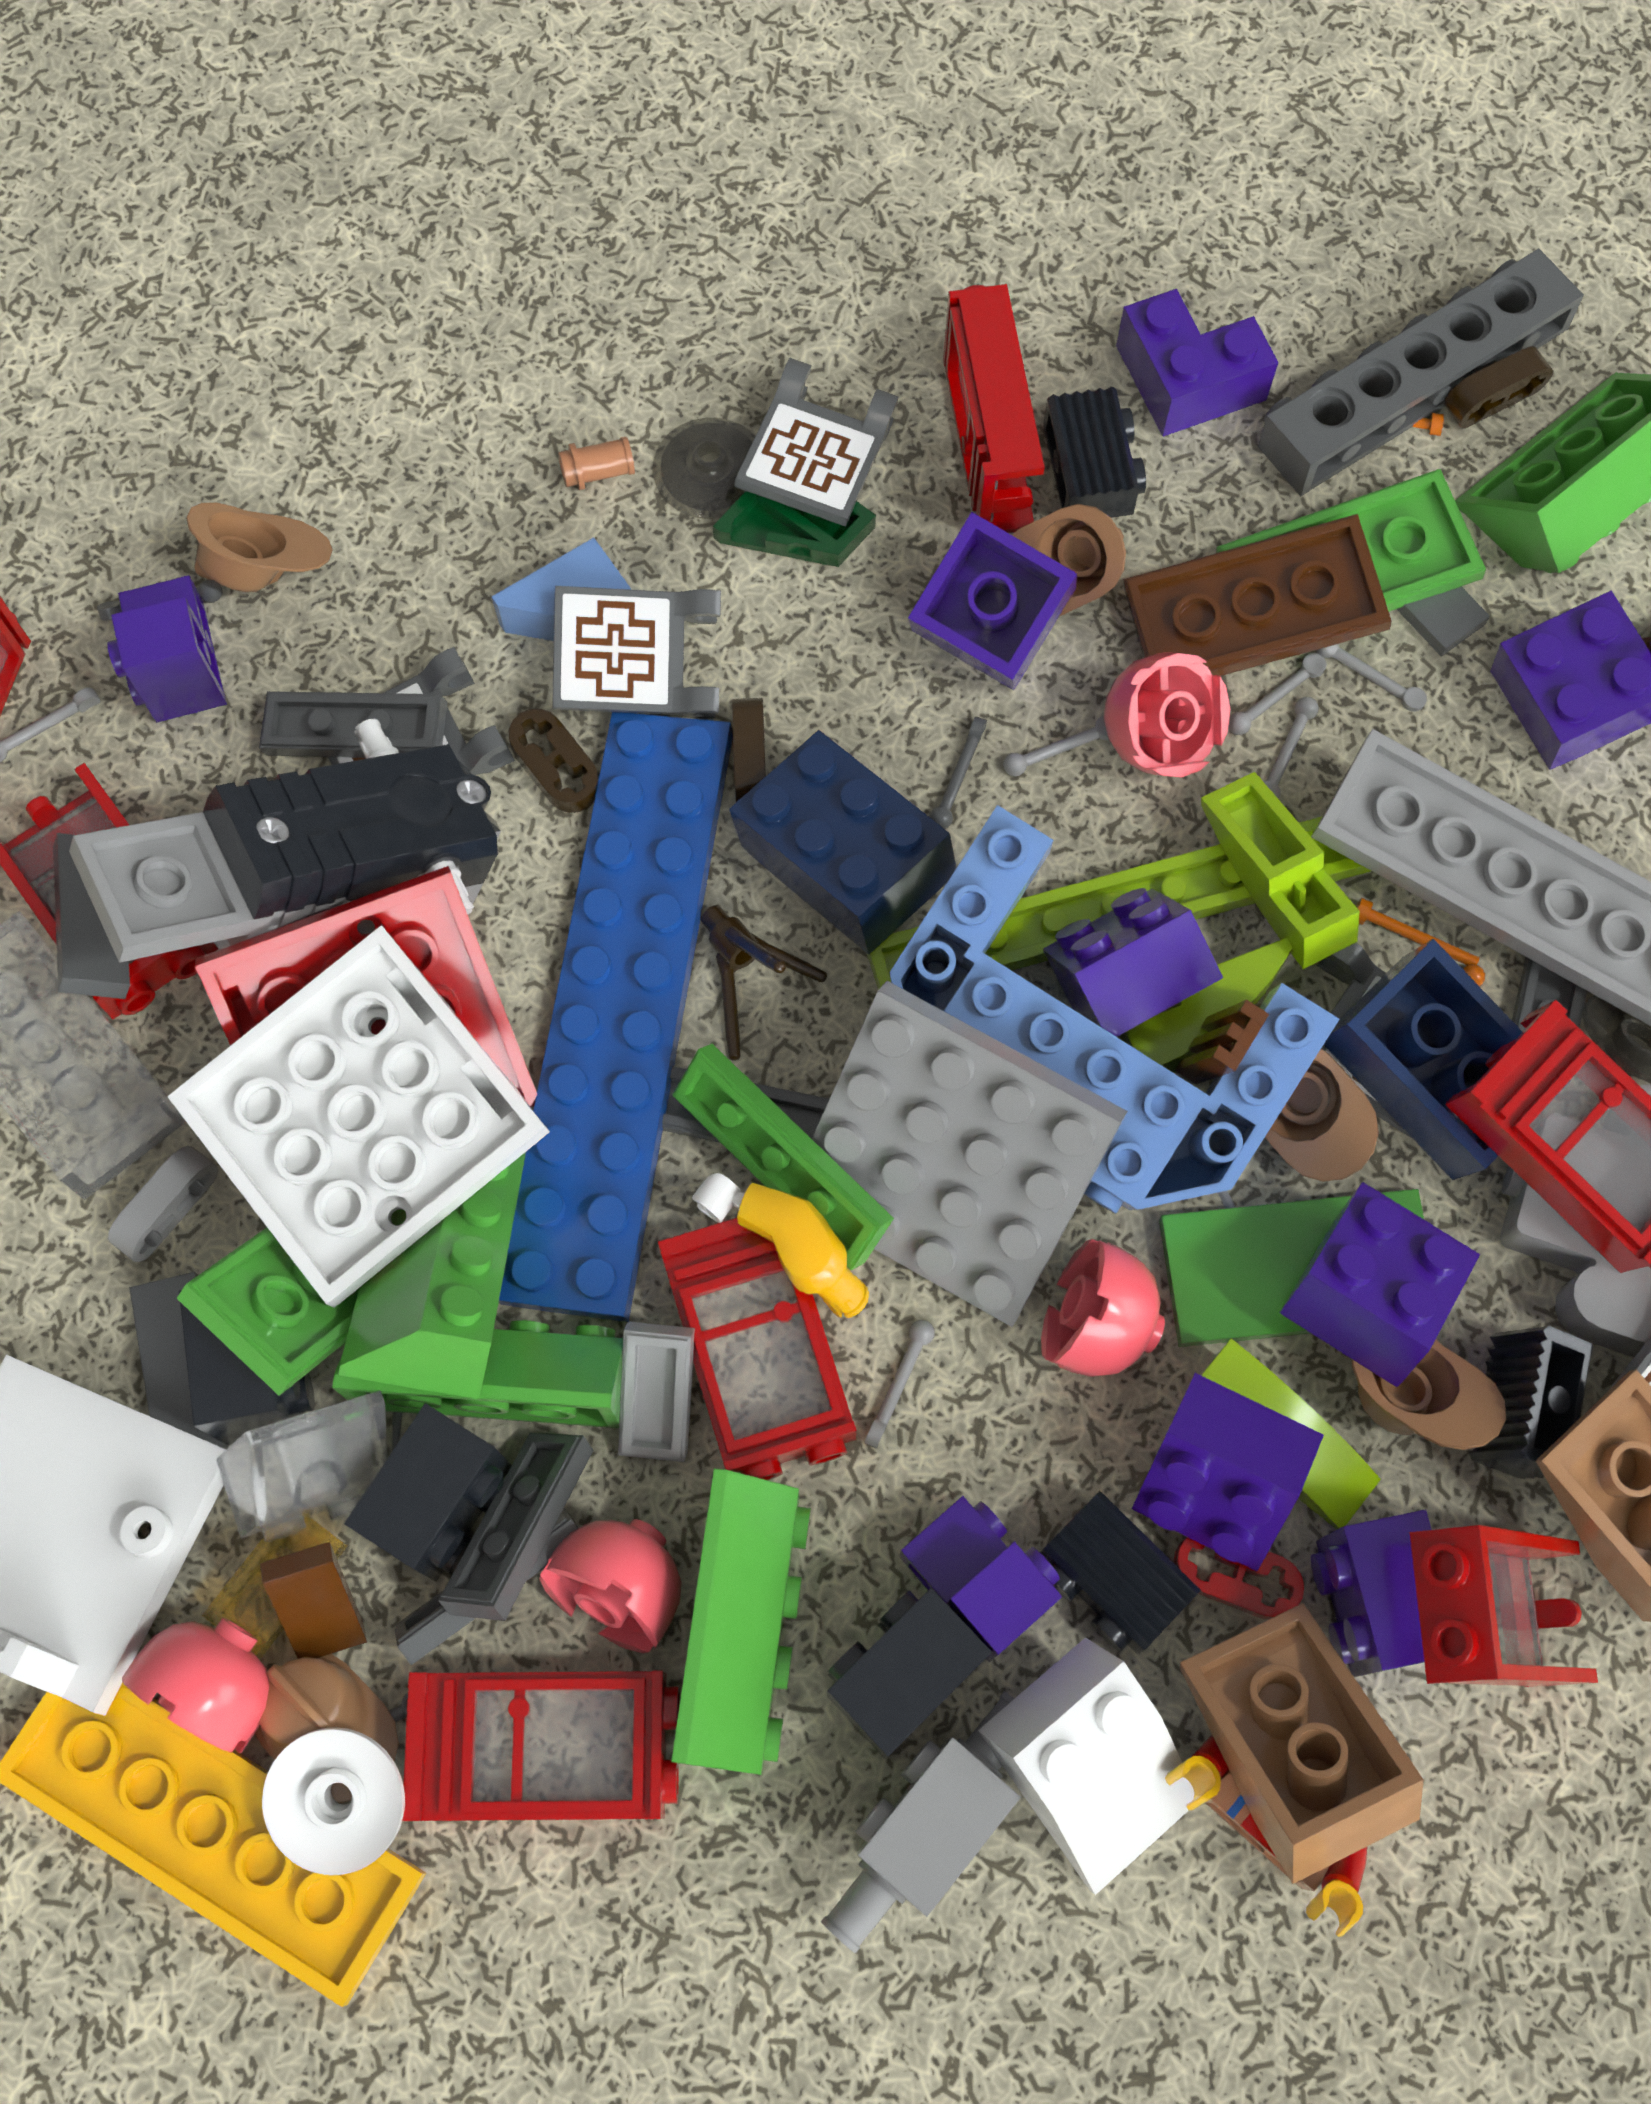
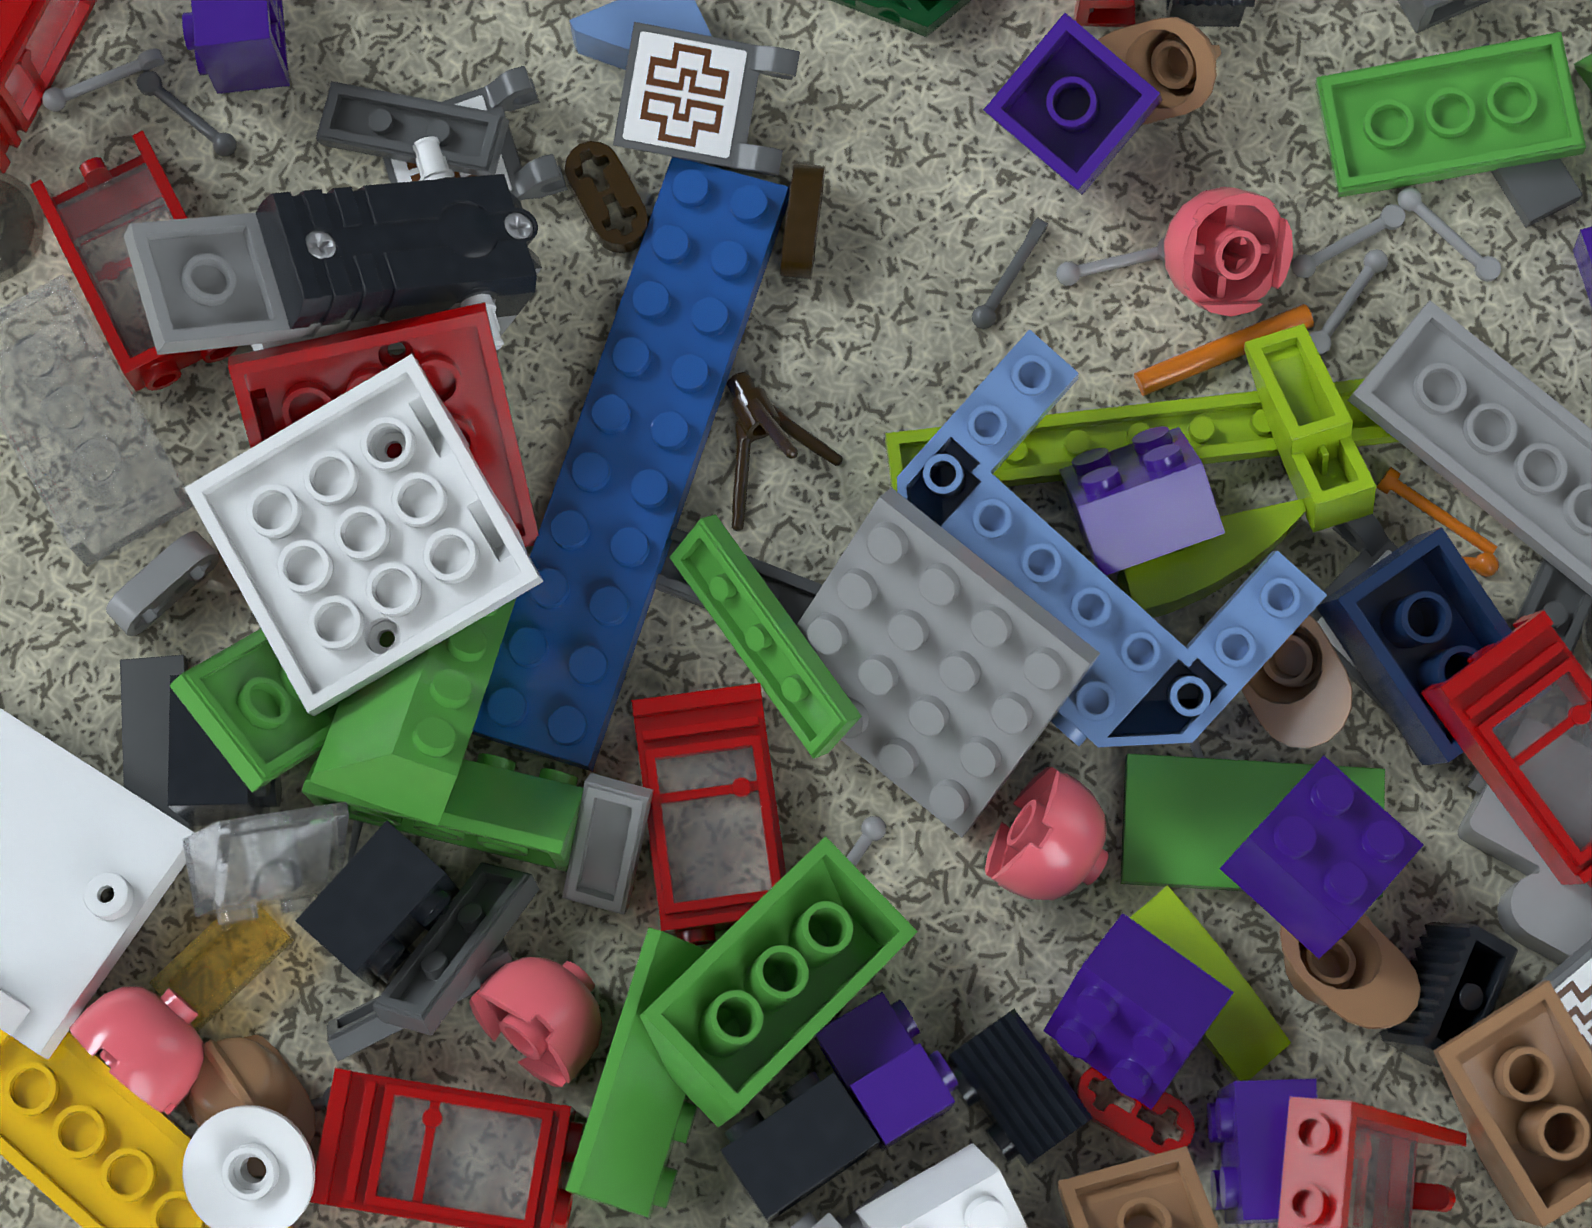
camera: 10 degrees right, 5 degrees up
(83, 950) = (120, 322): dark grey tile -> none
(89, 723) = (151, 84): none -> dark grey hinge
(313, 1601) = (255, 987): reddish brown tile -> none
(802, 1237) = (768, 716): yellow arm -> none
(844, 841) = (880, 329): dark blue brick -> none
(850, 1505) = (773, 981): none -> bright green slope
(1169, 817) = (1217, 351): none -> orange bar
(1214, 1050) = (1223, 590): reddish brown tile -> none
(1262, 599) = (1348, 143): reddish brown tile -> none

